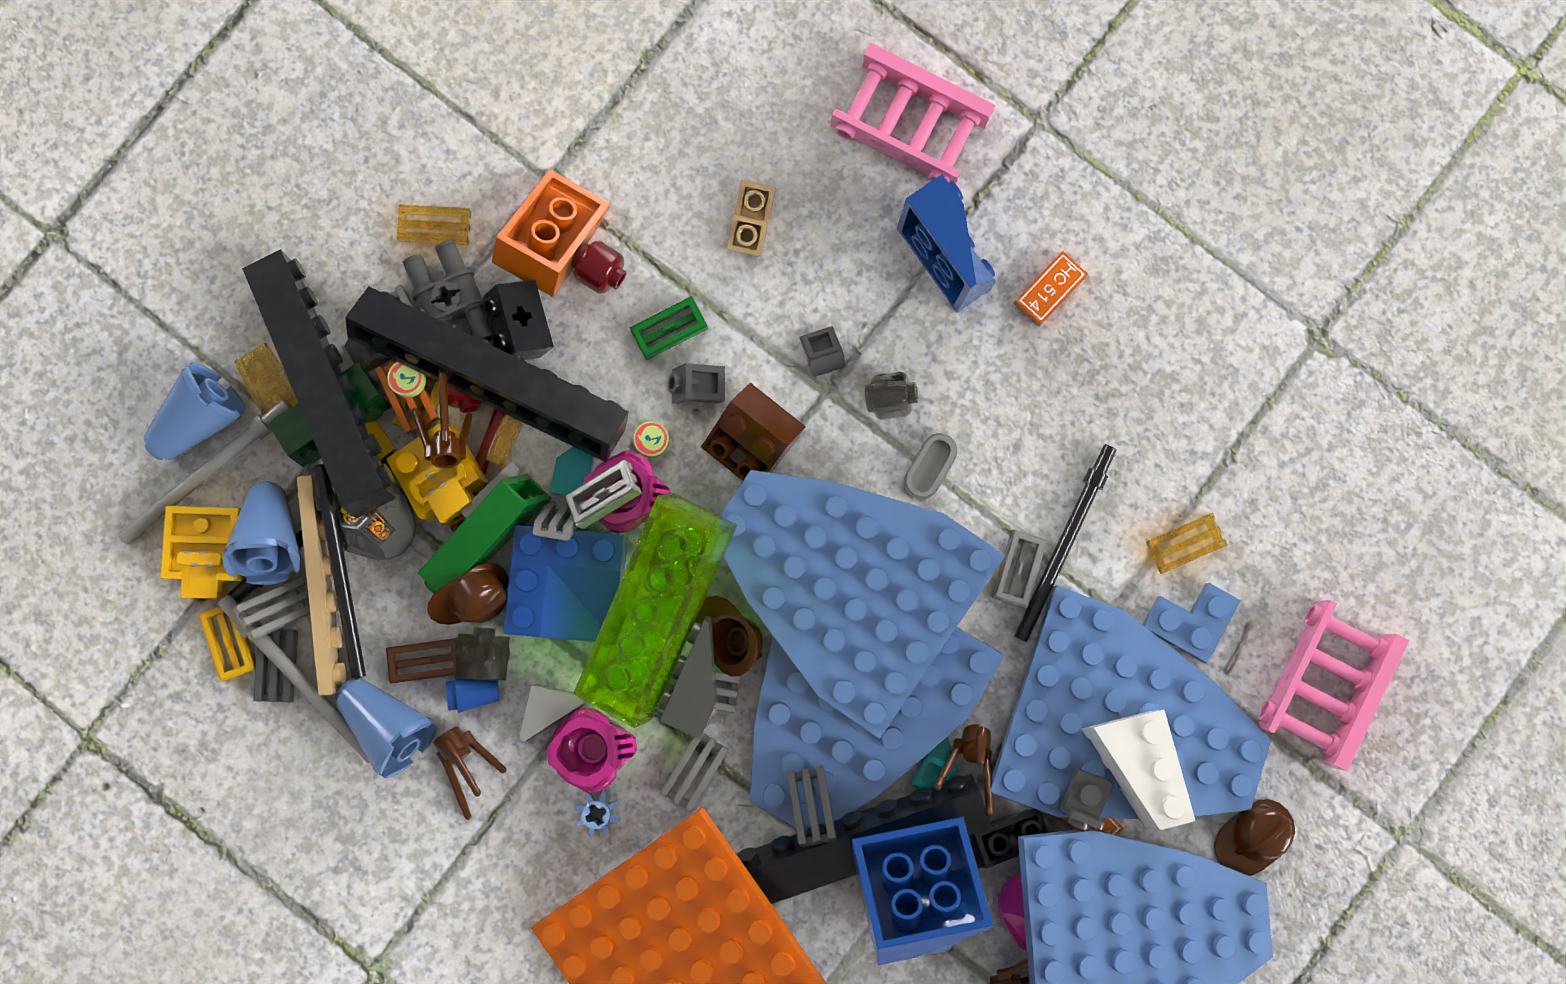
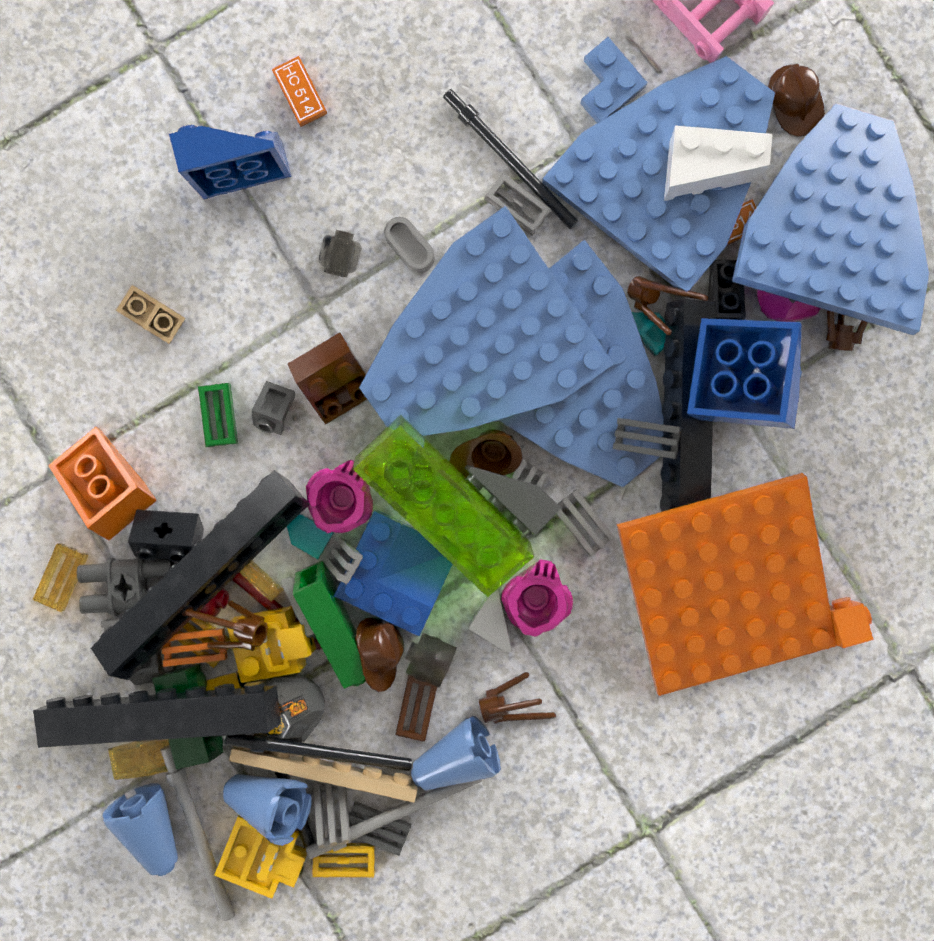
camera: 60 degrees left, 5 degrees up
(405, 380) = (181, 644): yellowish green tile -> none
(471, 693) = (457, 680): blue cone -> none
(596, 823) = (595, 616): light blue gear -> none
(599, 267) = (145, 453): dark red head -> none
(604, 499) = (340, 515): light grey tile -> none
(651, 439) = (304, 461): yellowish green tile -> none
(823, 351) = (283, 296): dark grey slope -> none
(912, 81) = (83, 139): bright pink fence -> none
(1085, 799) = (721, 217): dark grey bracket -> none
(1213, 531) = (545, 37): clear yellow tile -> none

